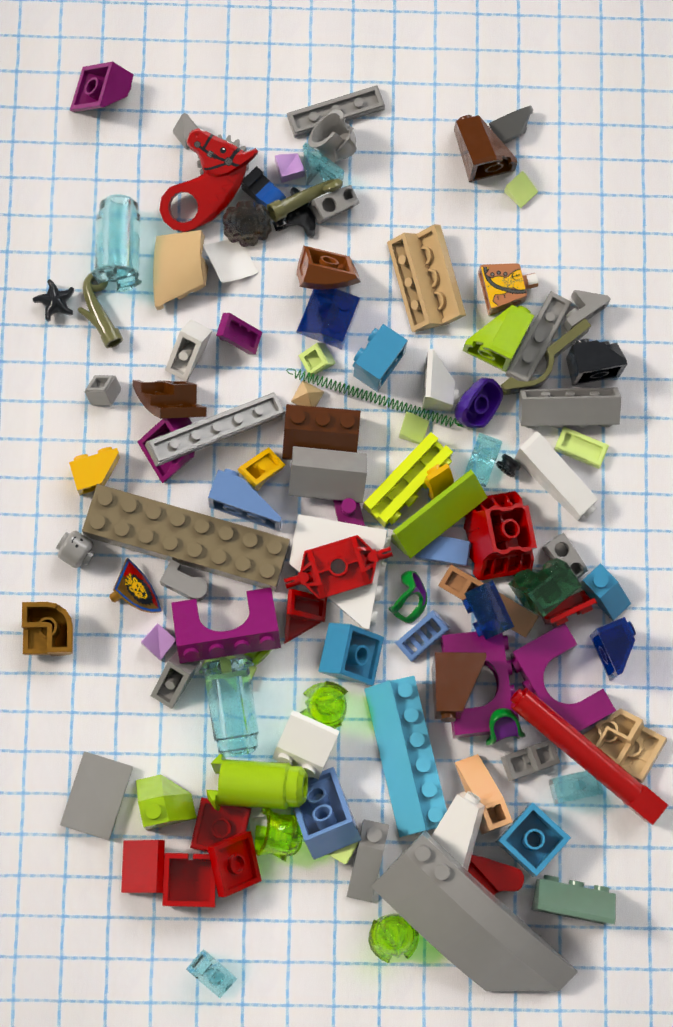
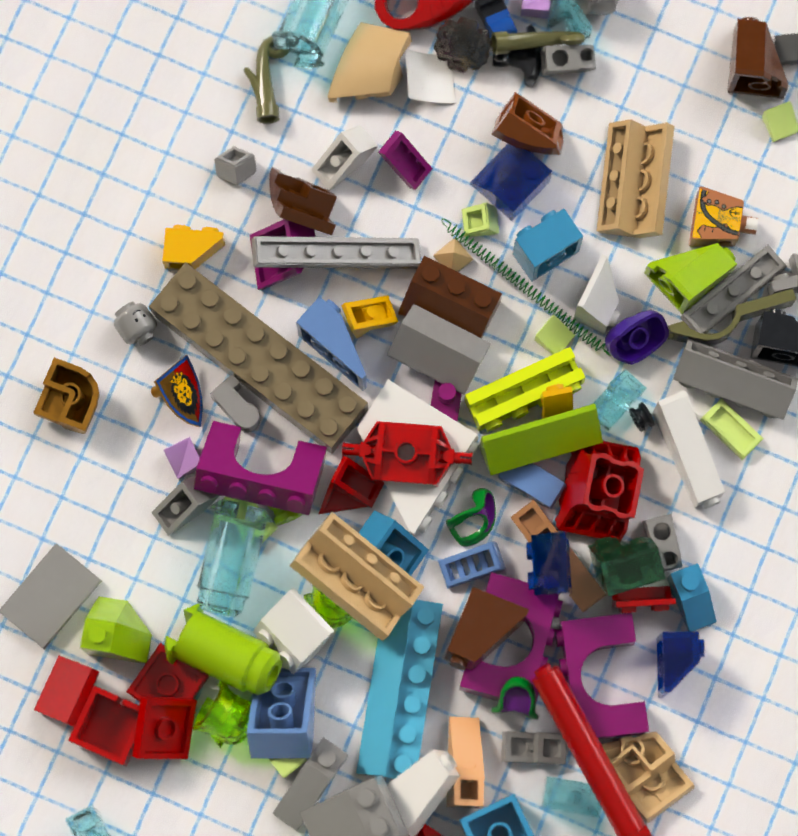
camera: 30 degrees right, 0 degrees up
(55, 300) = (223, 50): black animal -> none
(339, 680) = (357, 576): none -> tan slope

